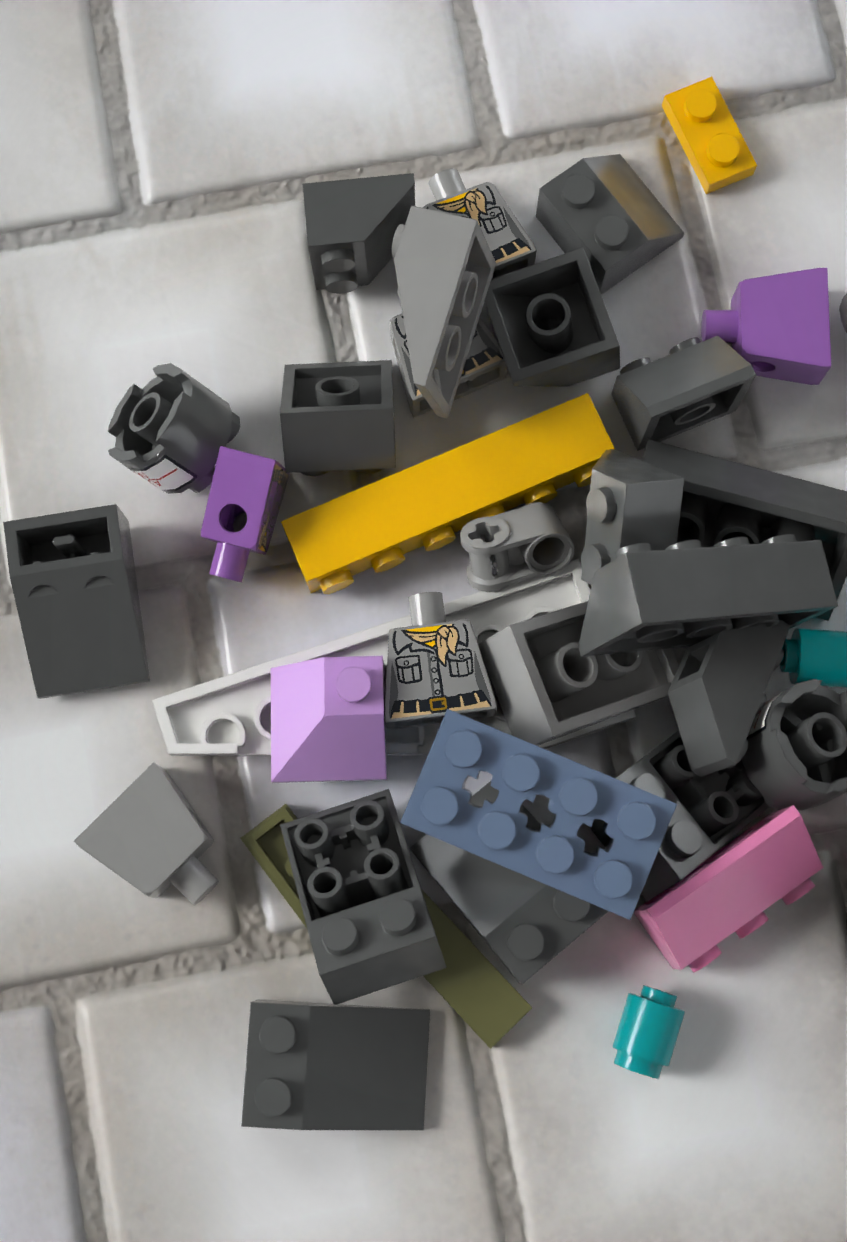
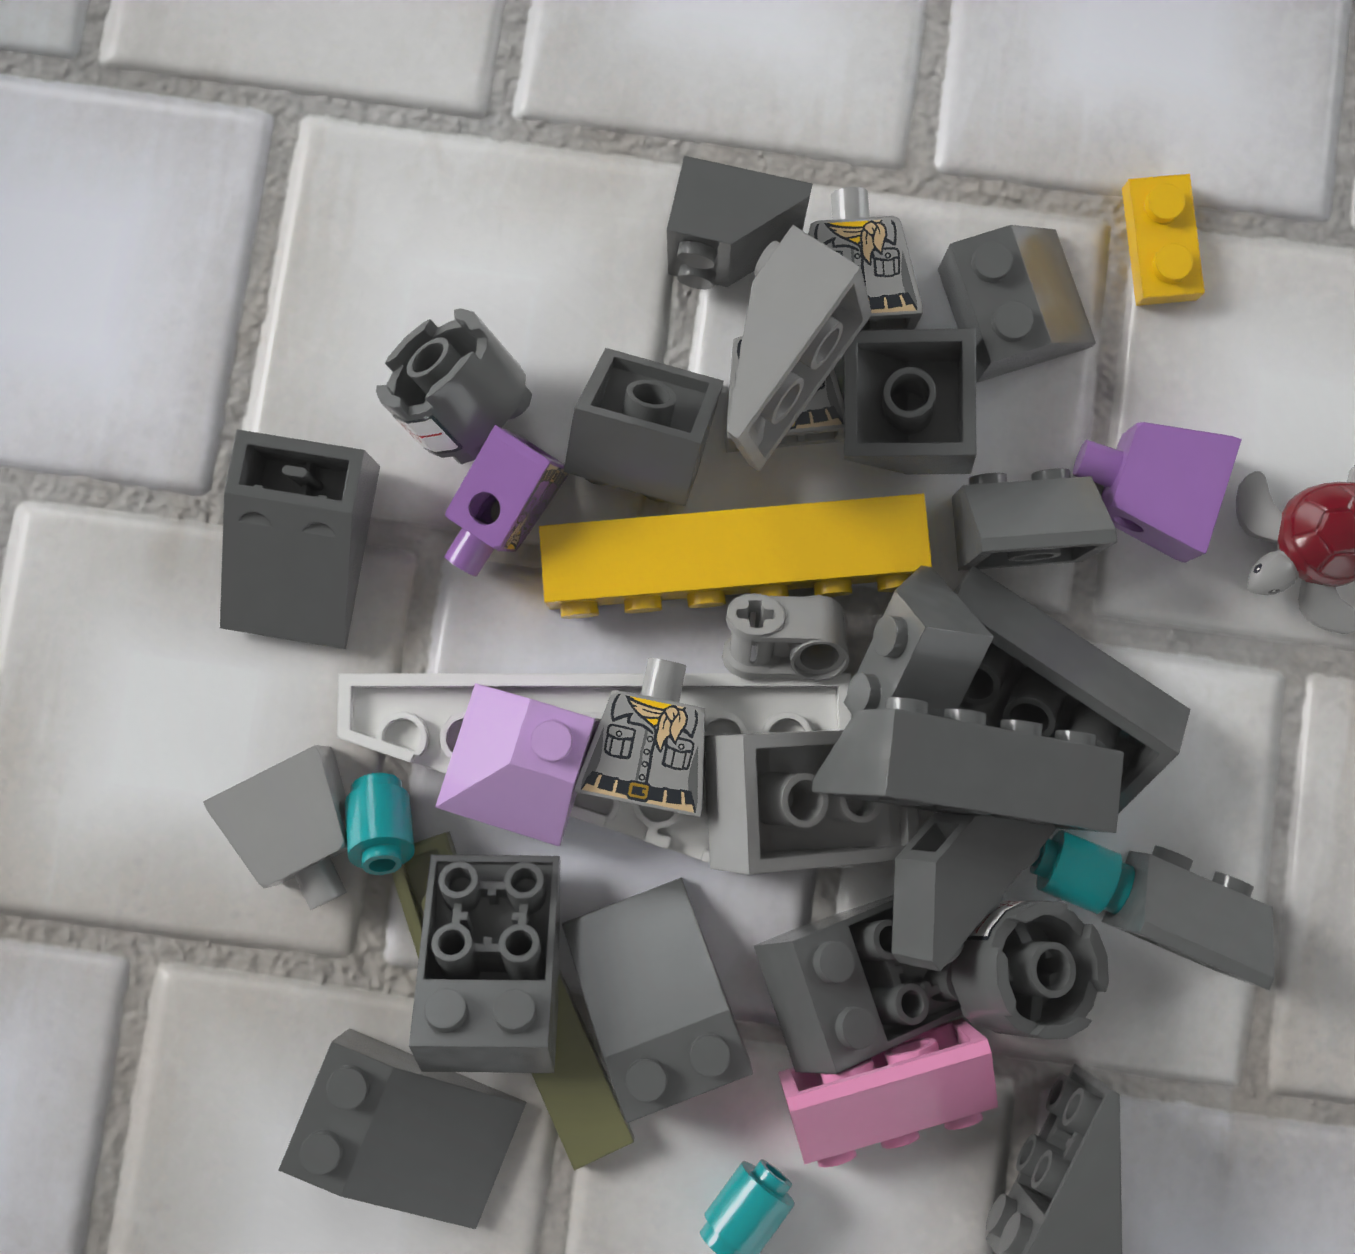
camera: 20 degrees right, 5 degrees up
(228, 812) = (379, 824): none -> teal brick
(576, 796) = (705, 1001): sand blue brick -> none

